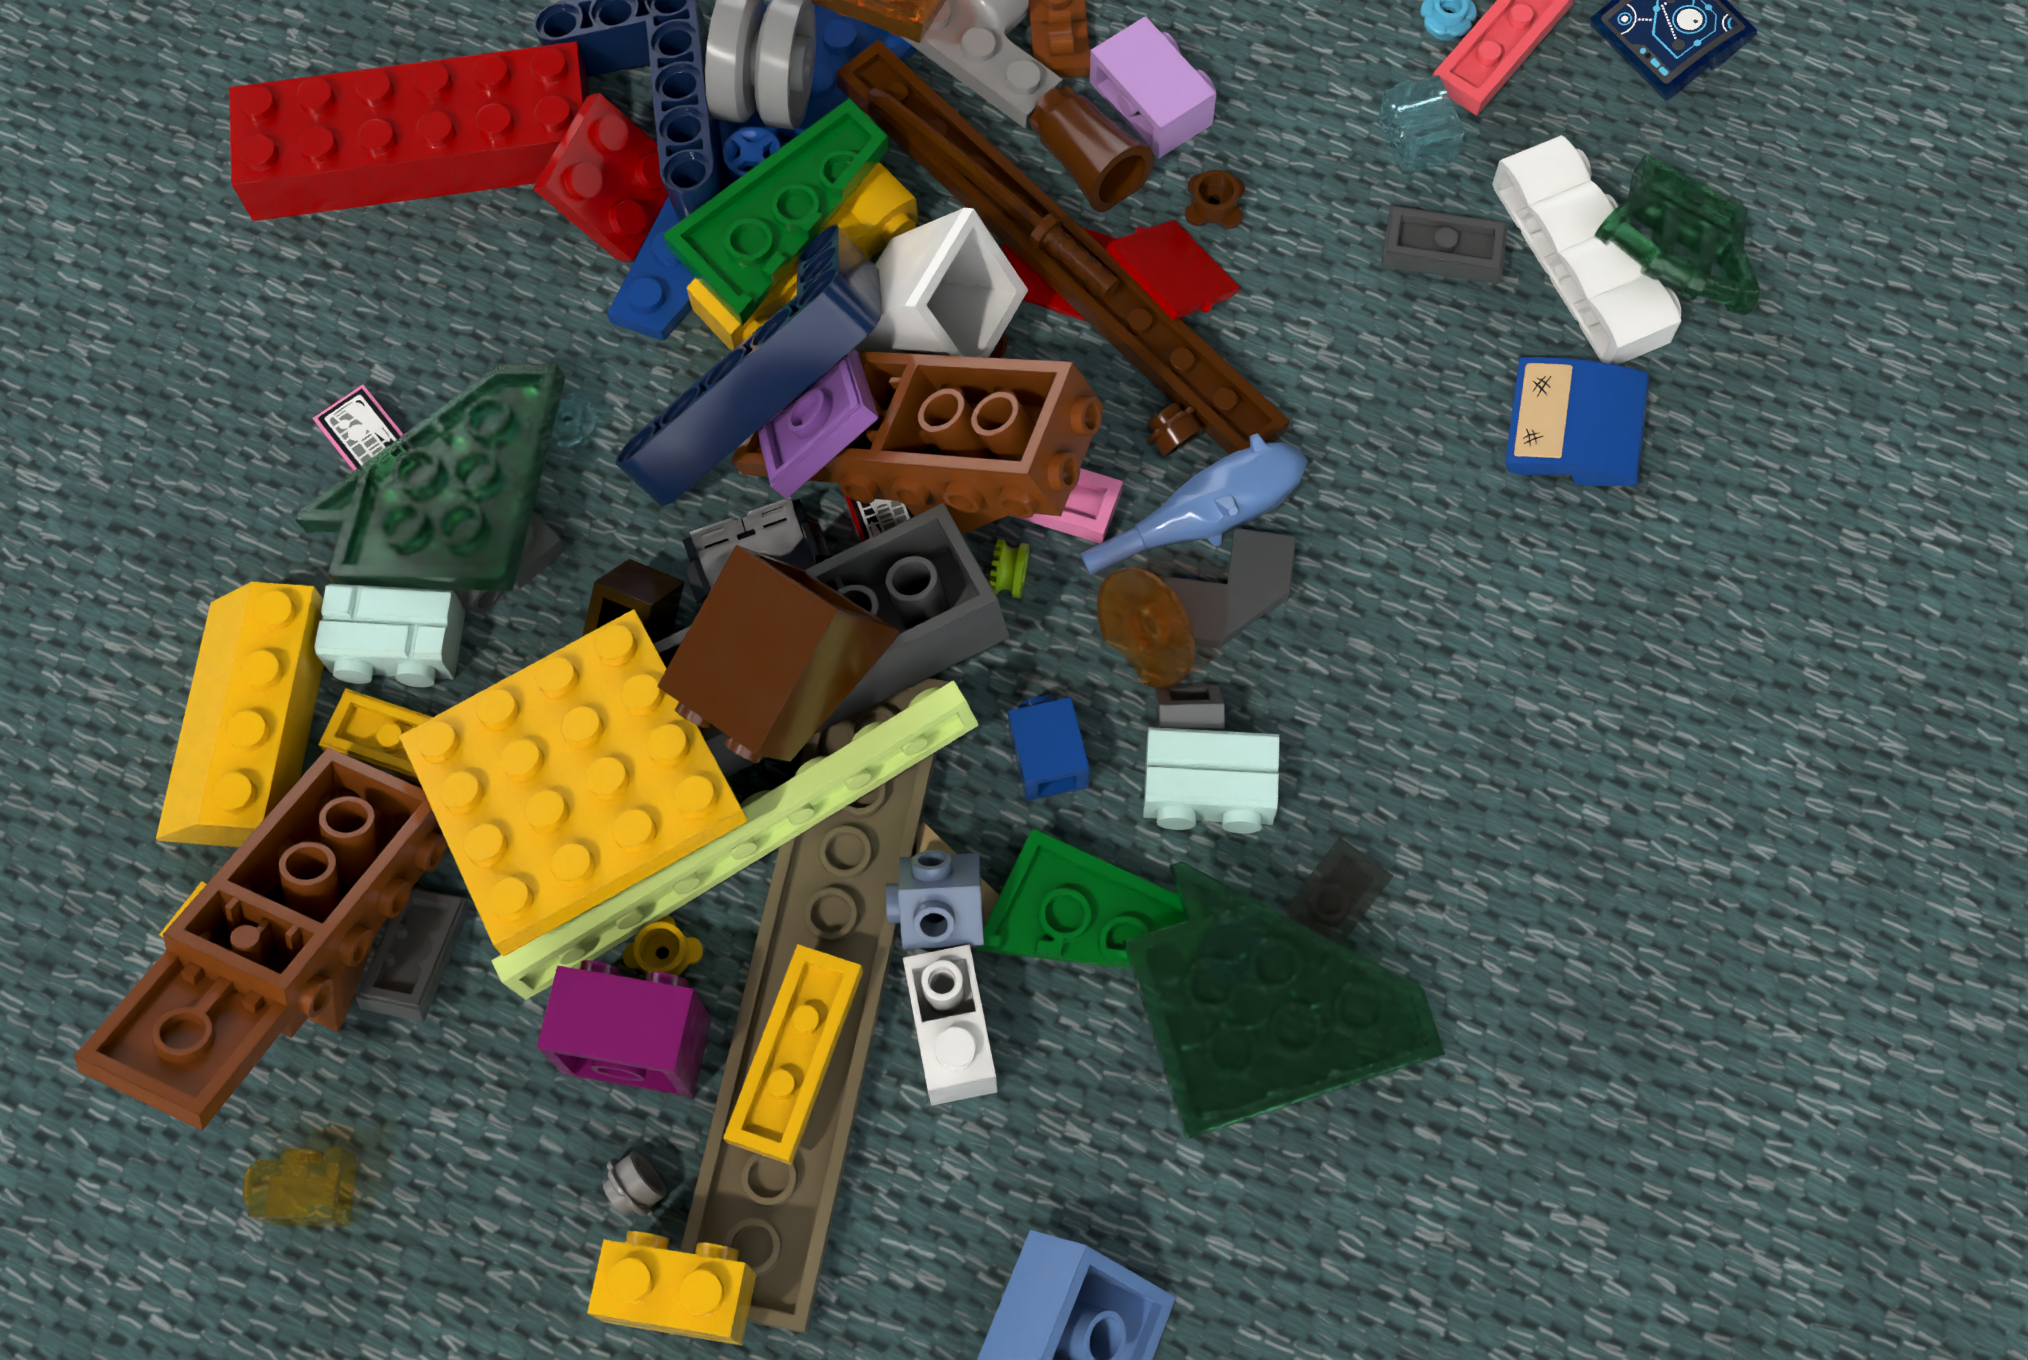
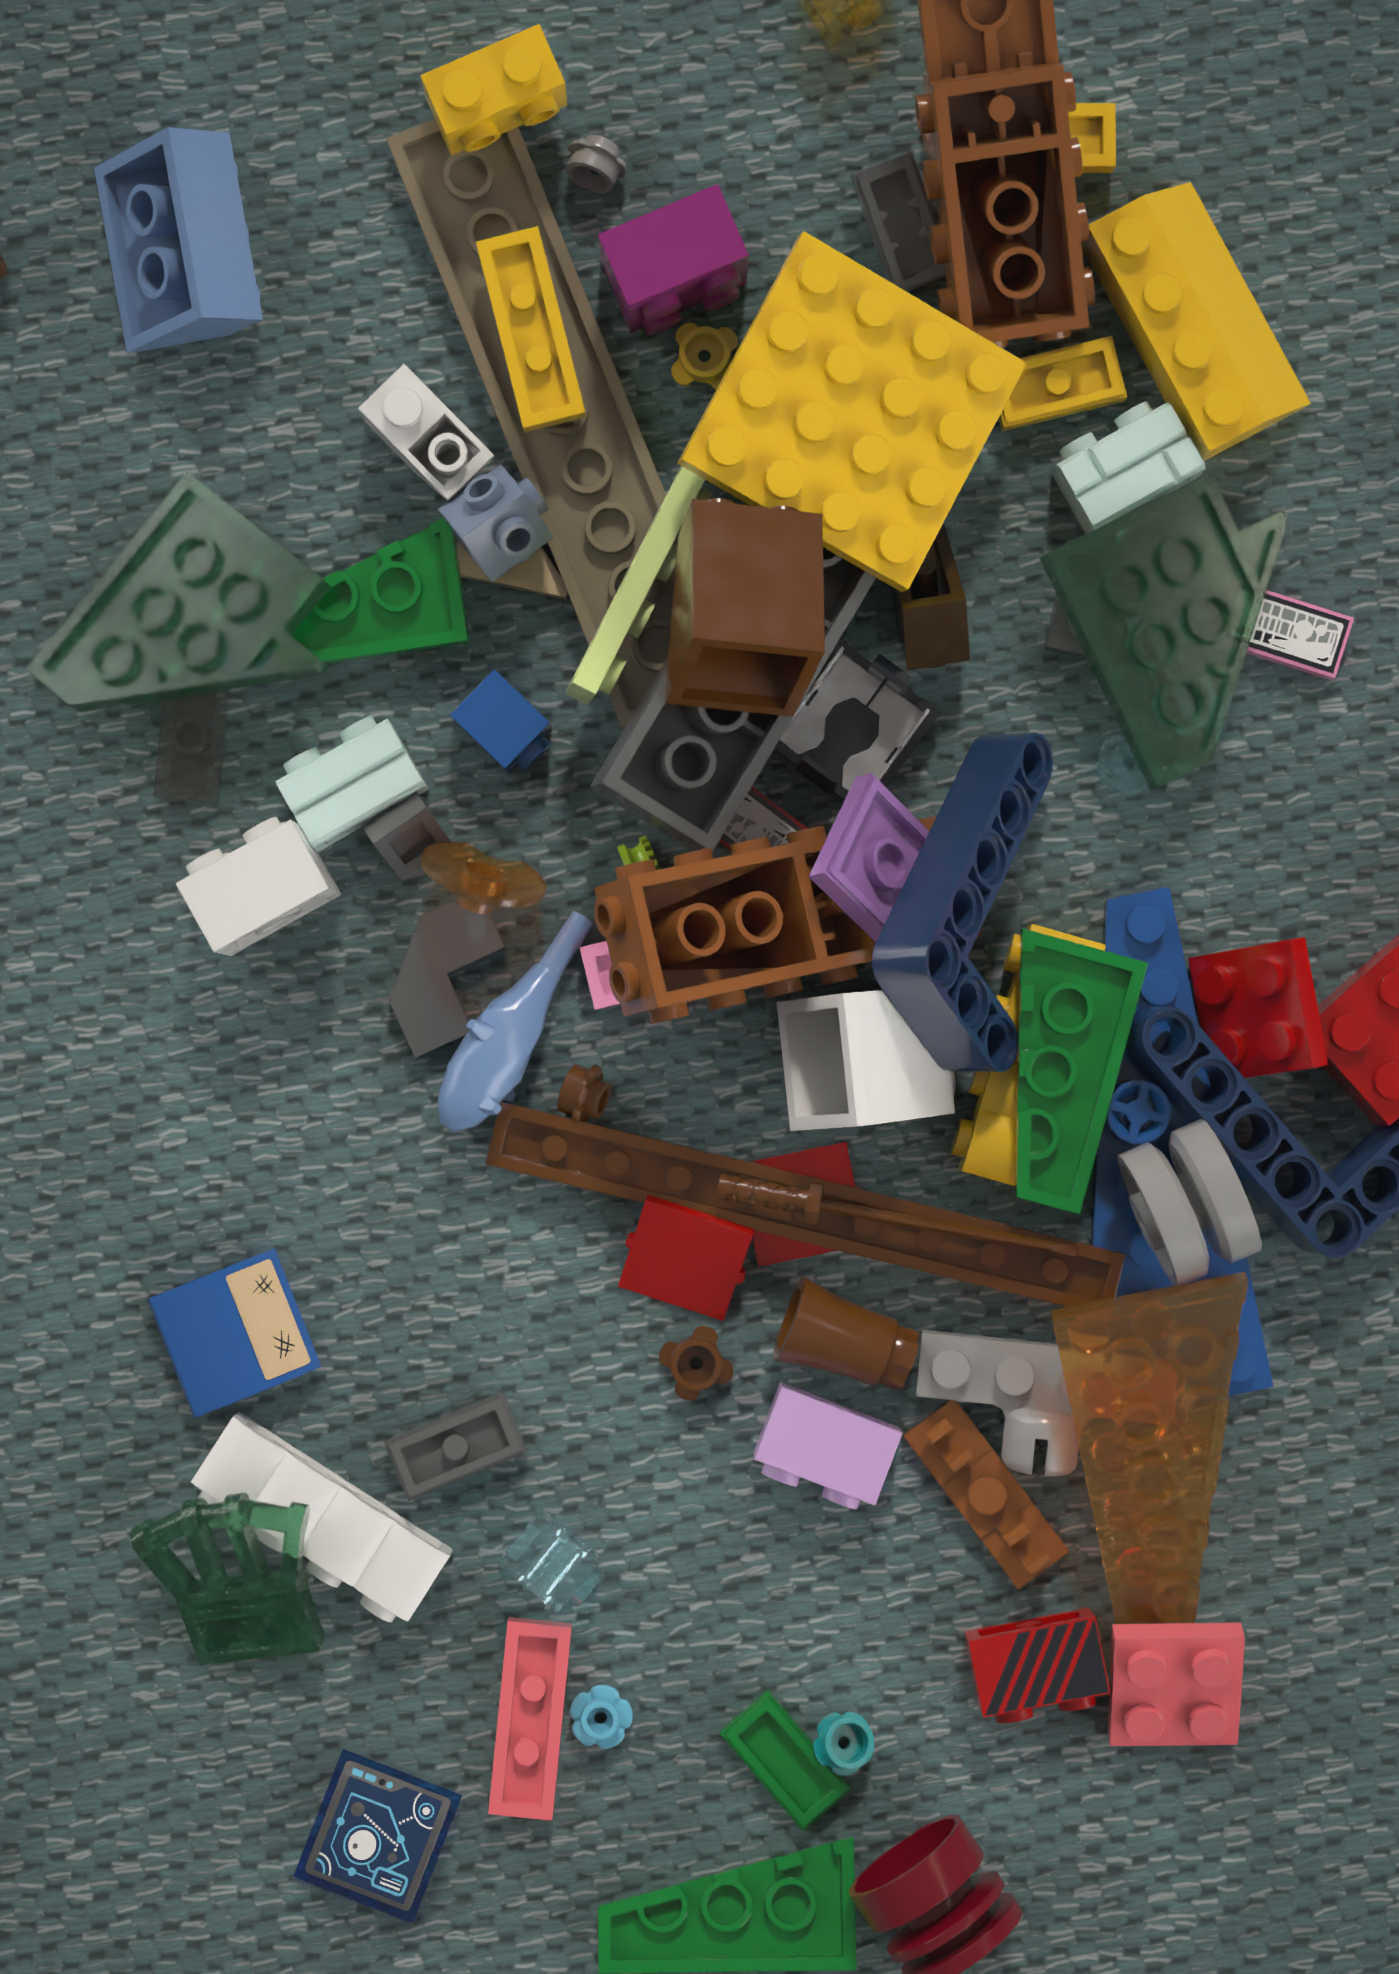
camera: 140 degrees right, 20 degrees up
(1348, 725) = (257, 886): none -> white brick

